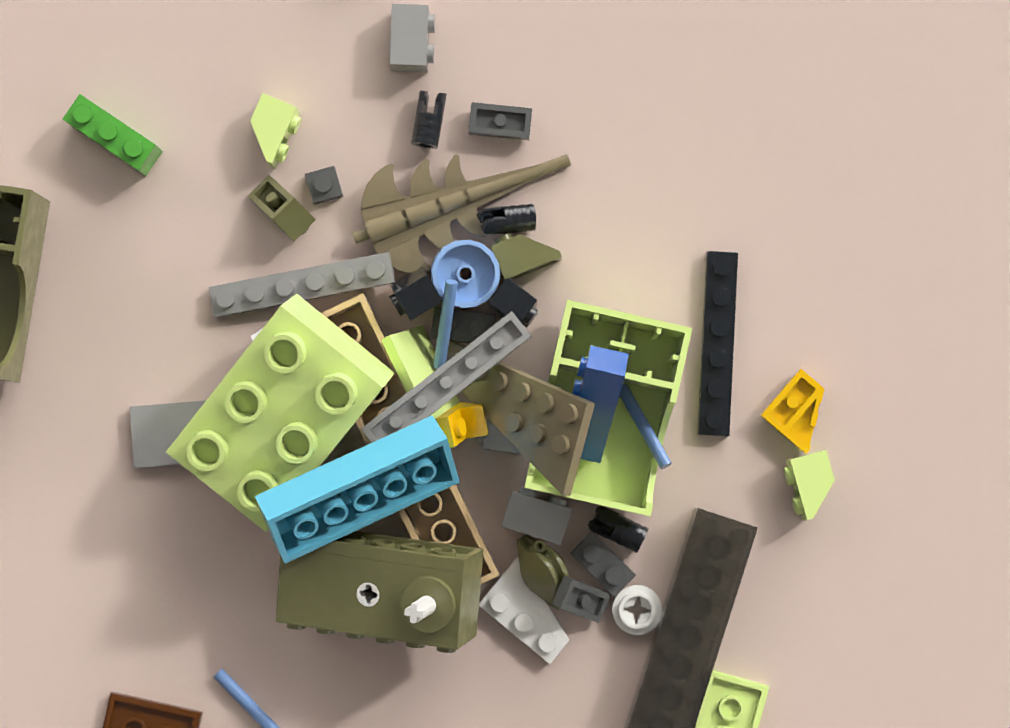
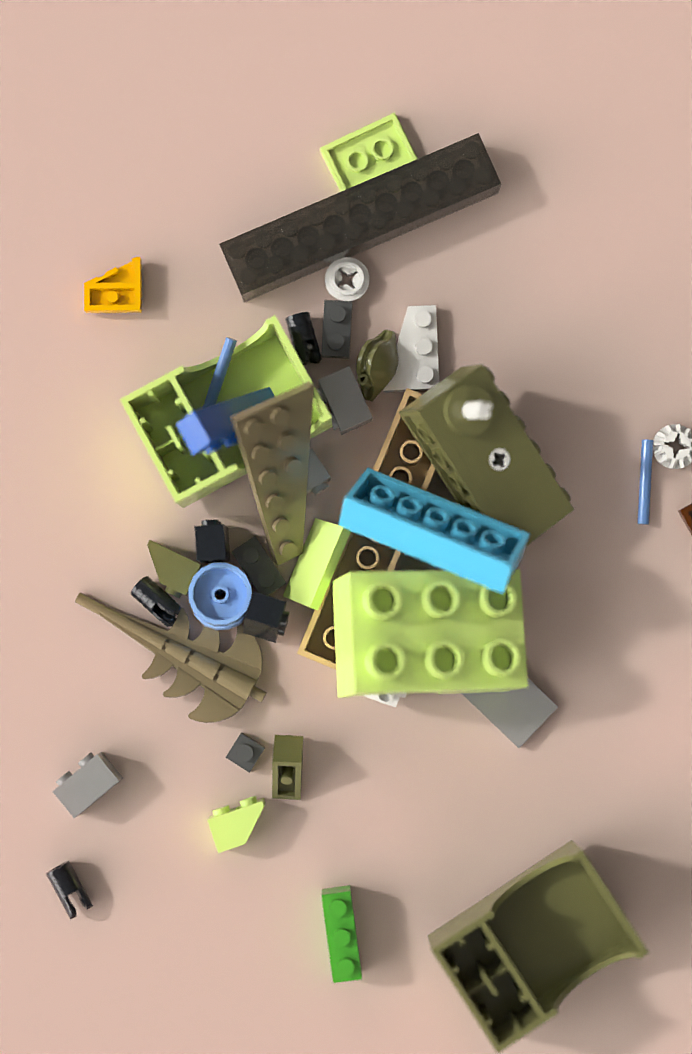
camera: 130 degrees left, 0 degrees up
(307, 283) = (325, 702): light grey plate -> none
(428, 125) = (139, 716): black hinge -> none
(445, 323) = (267, 577): medium blue bar -> none
(450, 378) = (303, 537): light grey plate -> none
(463, 422) = (323, 504): yellow slope -> none
(500, 121) = (92, 668): dark grey plate -> none
(581, 599) = (373, 320): dark grey plate -> none
(717, 343) = (116, 383): black plate -> none
(811, 482) = (156, 237): yellowish green slope -> none

